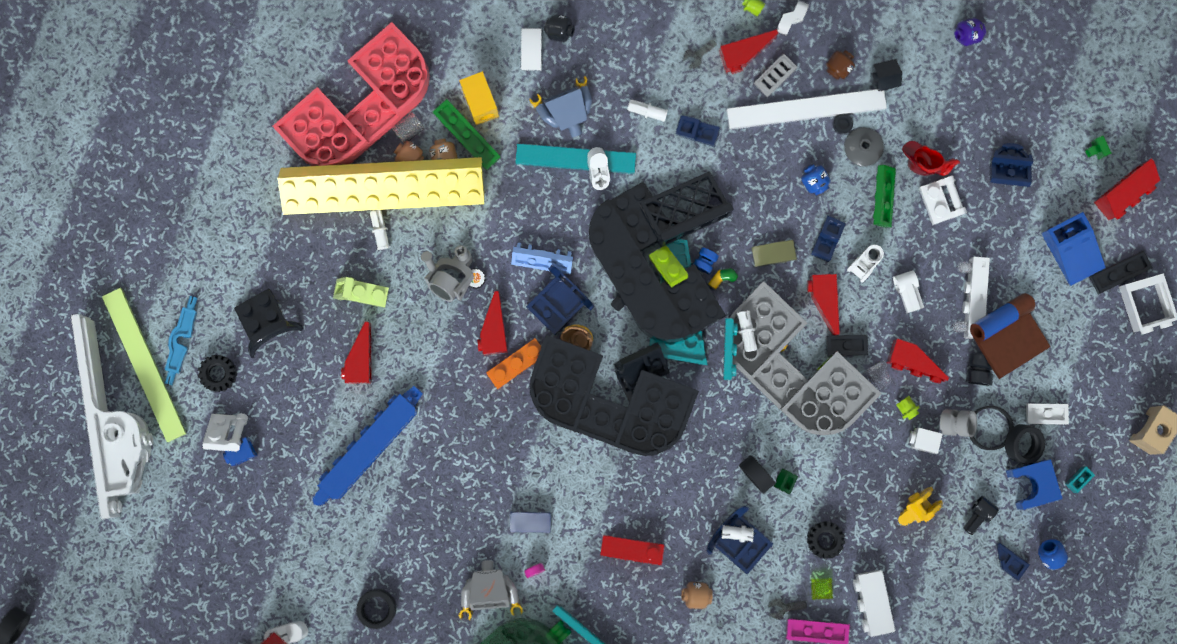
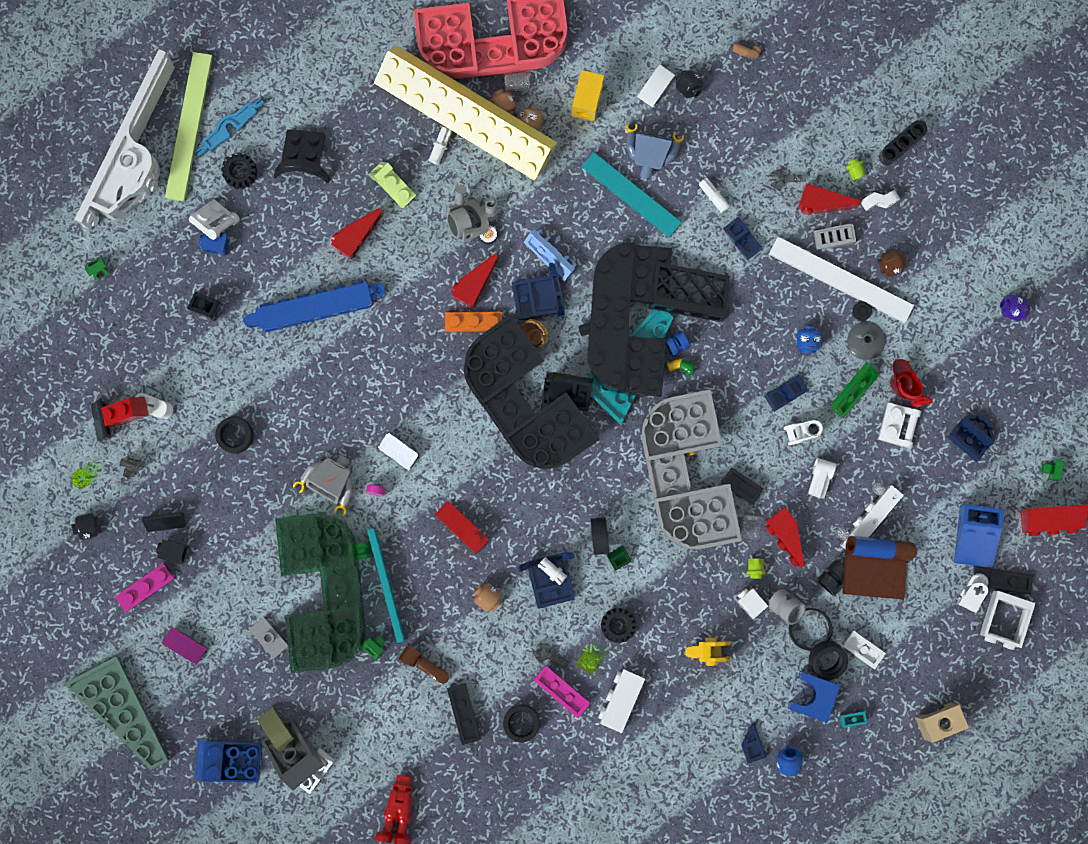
camera: 40 degrees right, 0 degrees up
(147, 546) = (95, 266): none -> green tile
(269, 514) = (204, 306): none -> black slope
(466, 134) = (559, 117): green plate -> none
(599, 177) = (647, 206): white piece -> none
(668, 266) = (644, 326): lime plate -> none
(729, 349) = (646, 423): teal tile -> none
(747, 331) = (669, 418): white axle -> none
(774, 253) = (735, 375): olive slope -> none
(825, 297) = (751, 435): red slope -> none
(886, 75) = (923, 296): black brick -> none
(982, 511) = (758, 690): black axle -> none
(1106, 300) = (974, 593): none -> white piece

